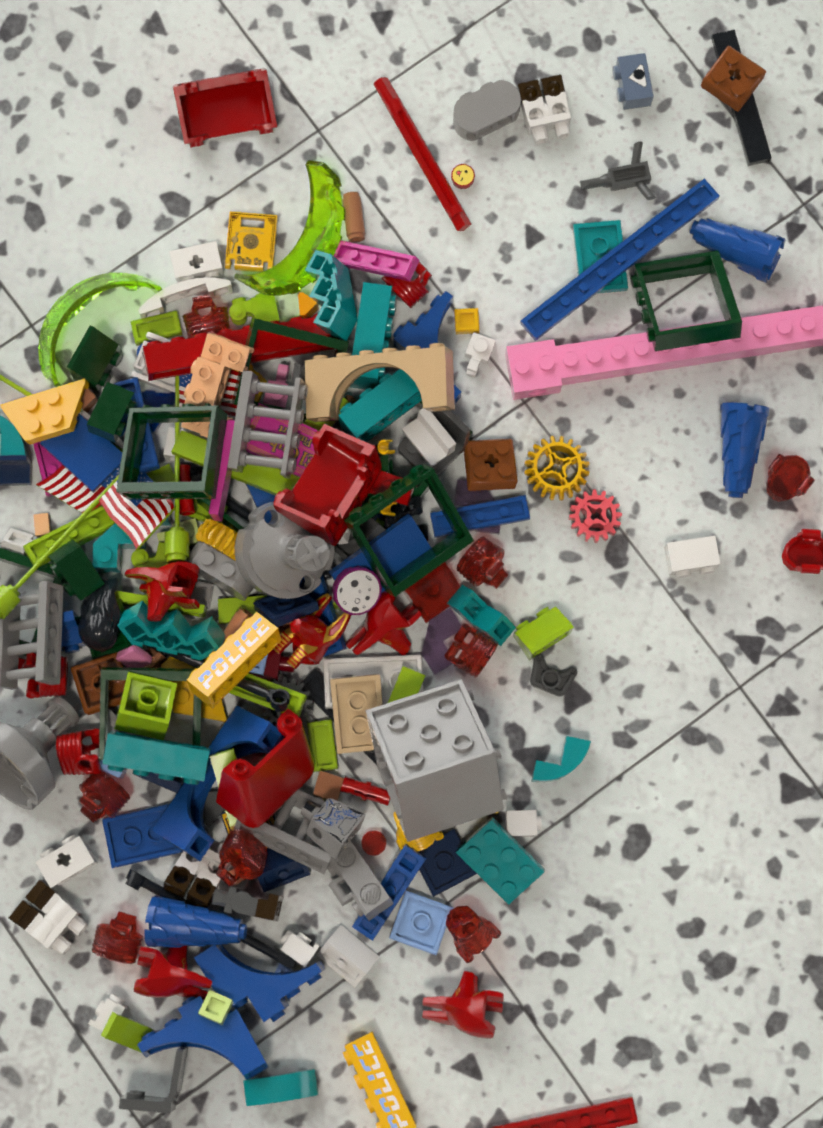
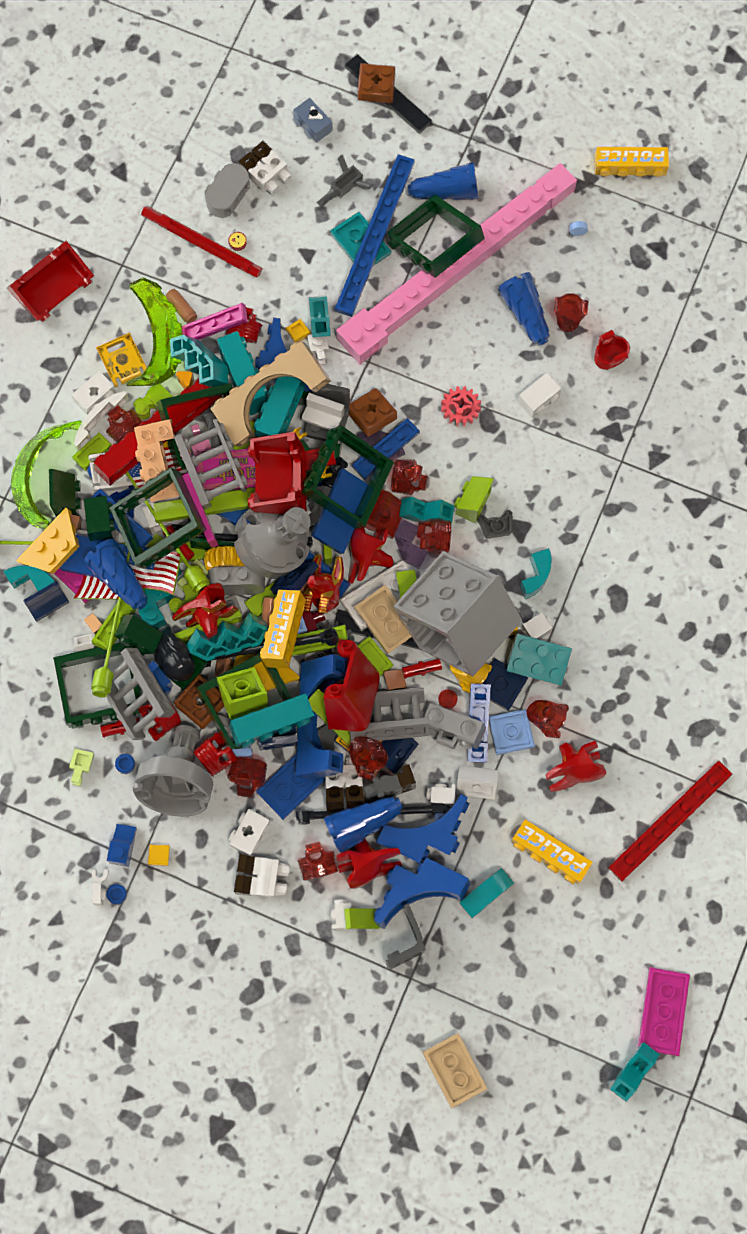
camera: 30 degrees left, 5 degrees down
(92, 485) = (111, 568): none -> blue cone
(134, 657) = (211, 670): bright pink tile -> none
(215, 1007) = (411, 864): yellowish green tile -> none
(332, 825) = (415, 698): light grey torso -> none
(356, 590) = (336, 537): white tile -> none
(500, 318) = (319, 316): none -> teal brick
(565, 463) = (405, 380): yellow gear -> none

